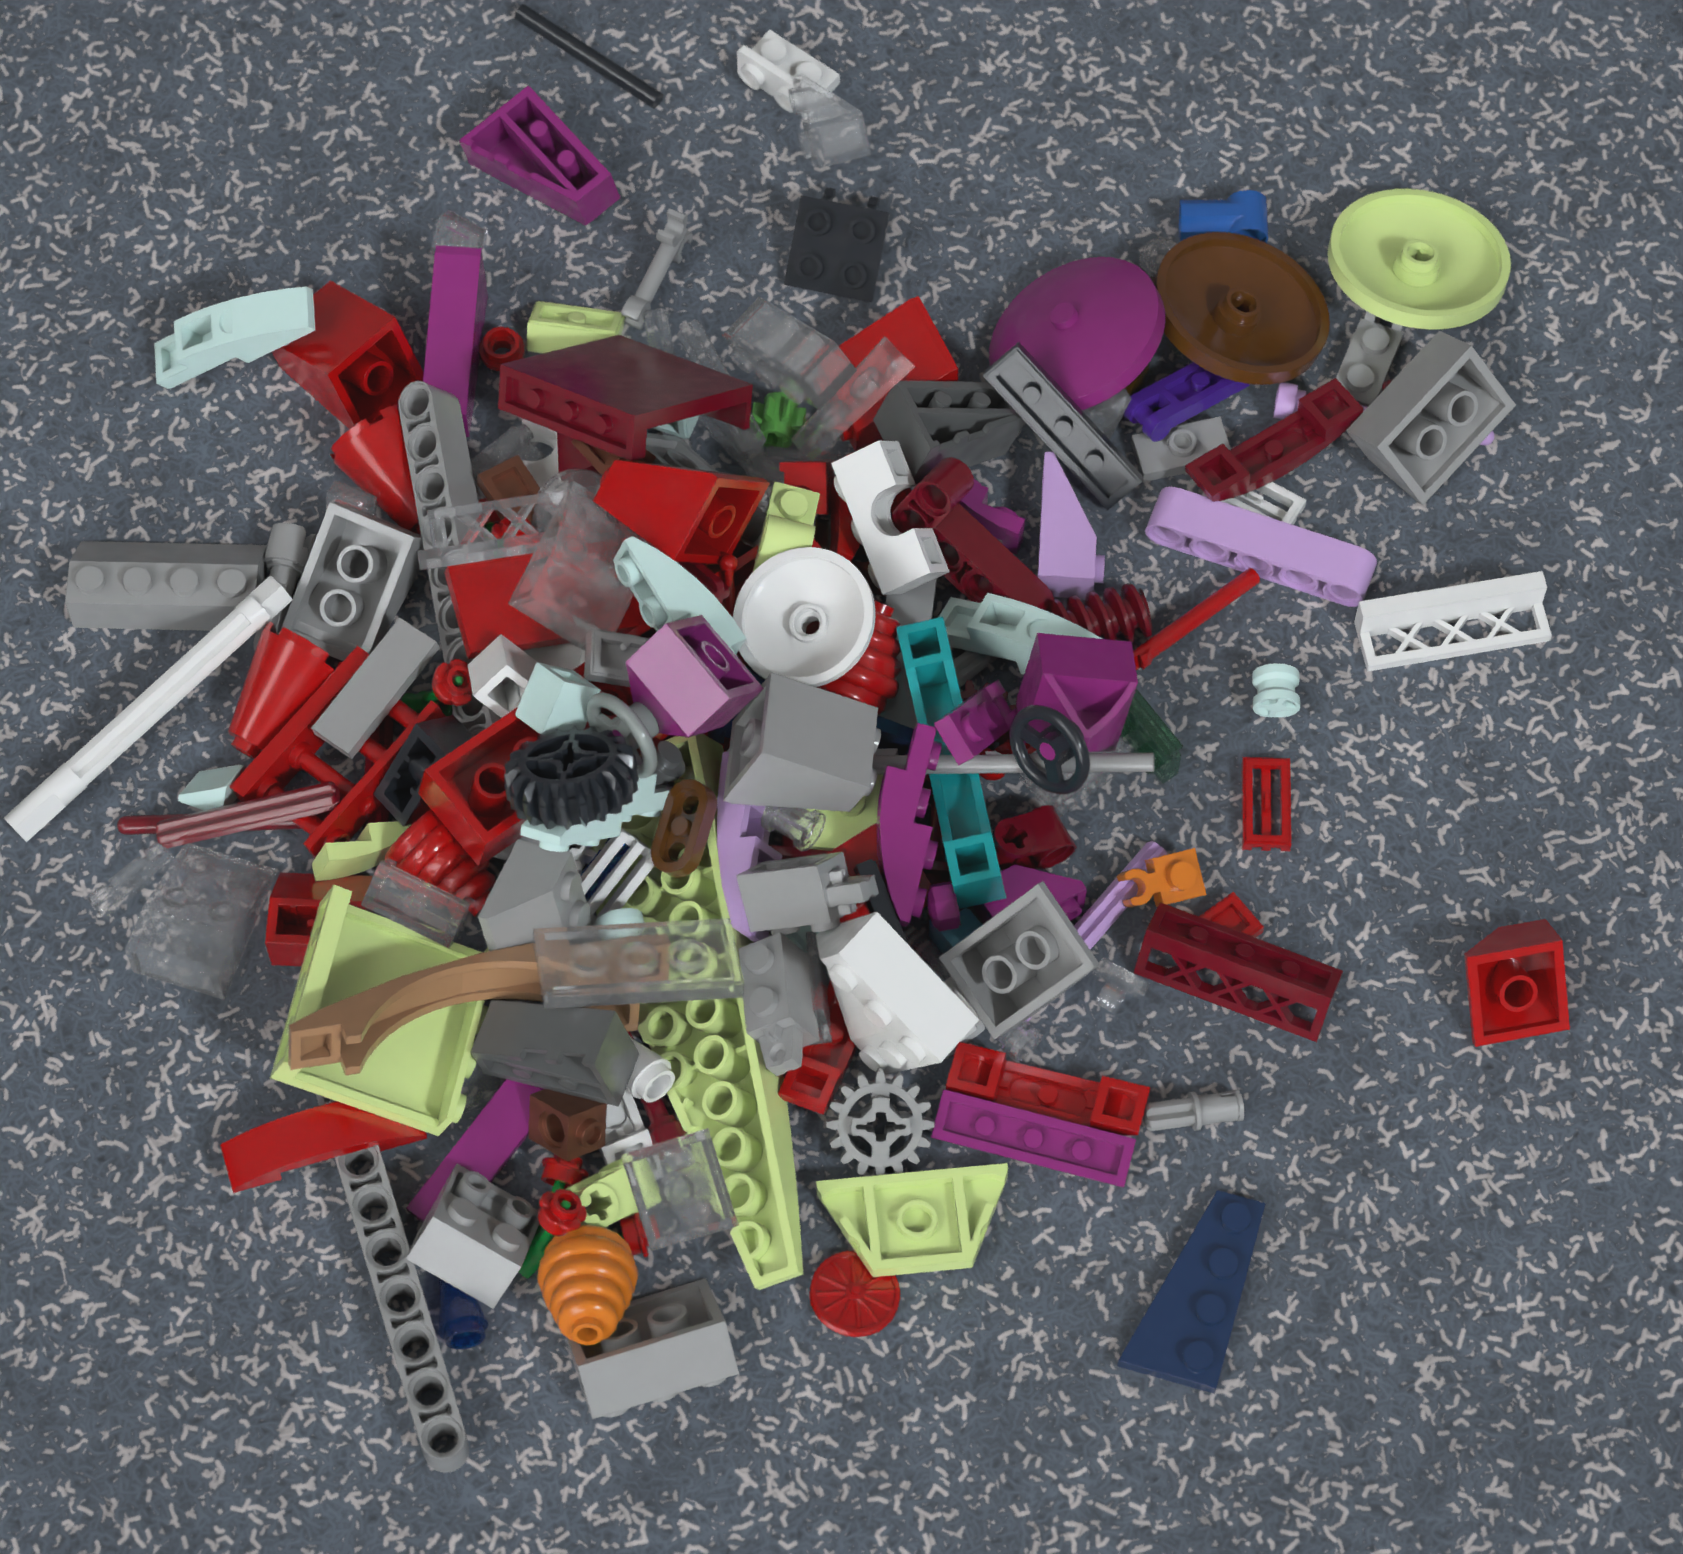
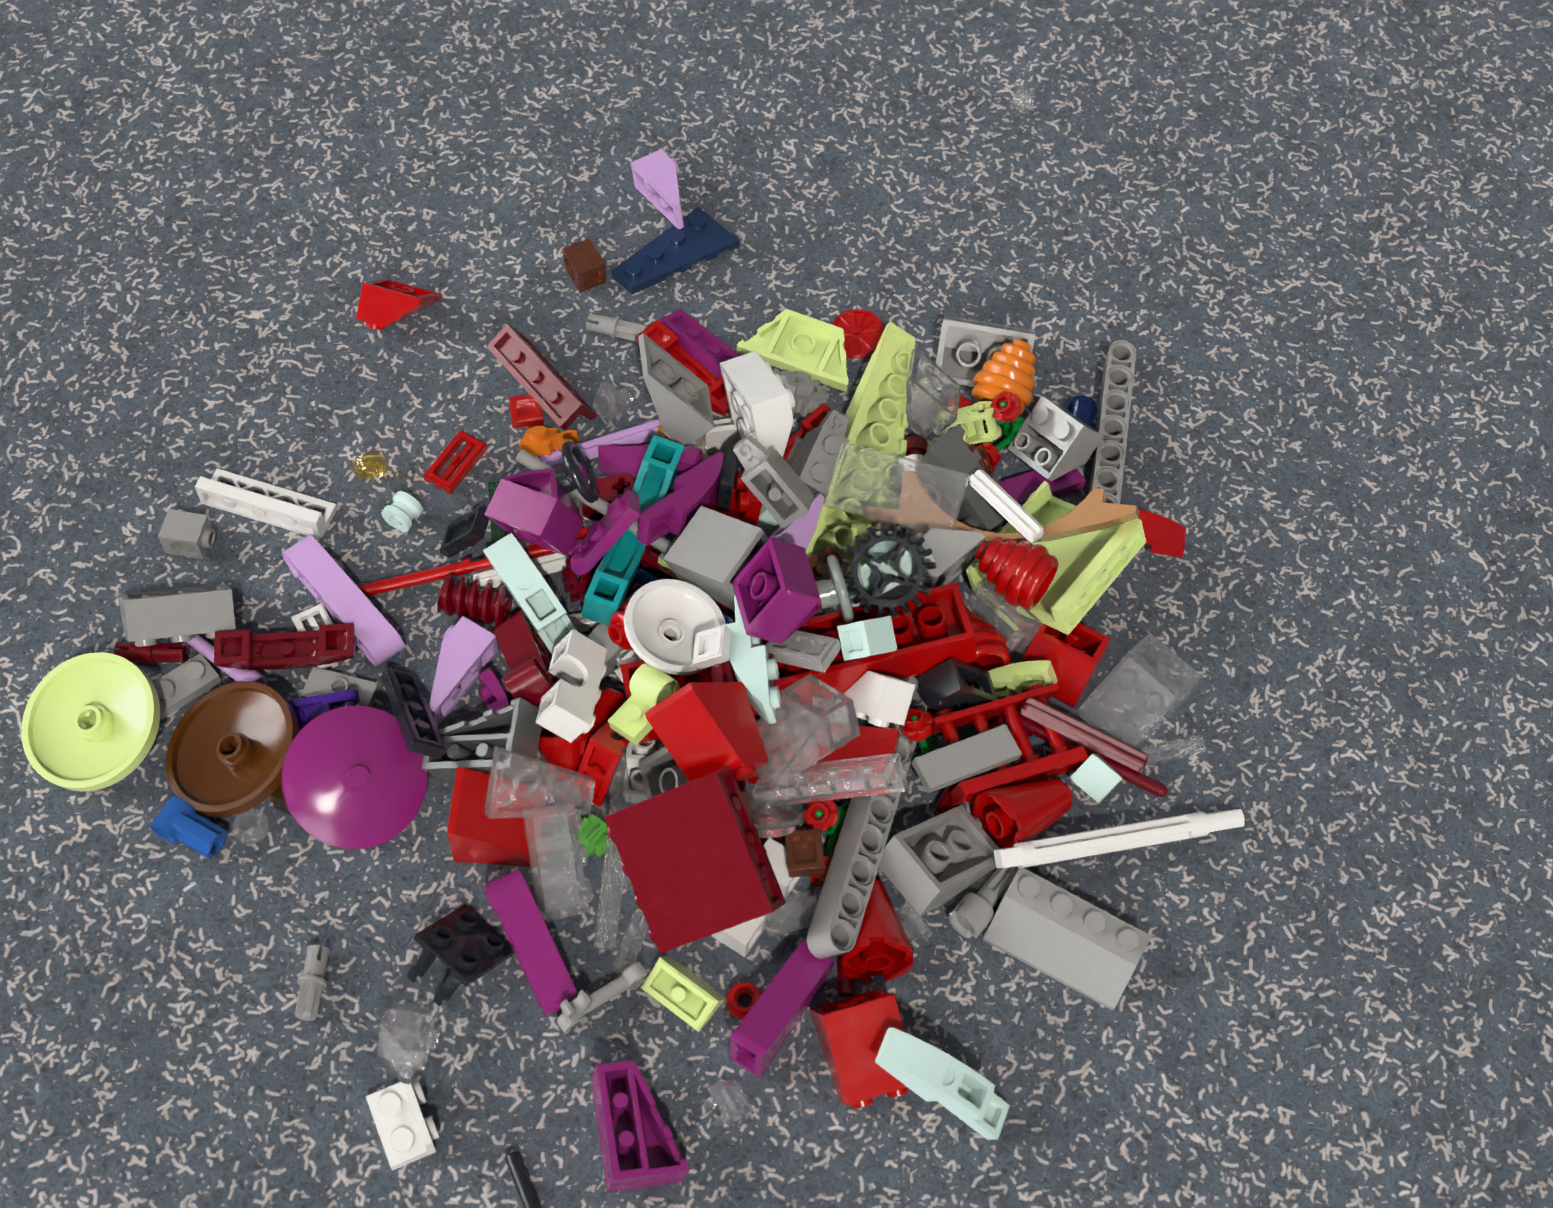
camera: 155 degrees left, 5 degrees down
(420, 926) = (1017, 570): none -> red piece
(474, 991) = (1006, 506): none -> white axle
(740, 600) = (712, 647): none -> white tile
(784, 278) = (530, 941): none -> magenta beam
(973, 145) = (312, 983): none -> light grey axle
(1171, 688) = (465, 532): none -> black plate
(1287, 1382) = (658, 181): none -> lavender slope
(1308, 1185) = (584, 265): none -> copper brick
(1363, 730) = (369, 466): none -> clear yellow tile
(1508, 527) = (186, 534): none -> light grey brick

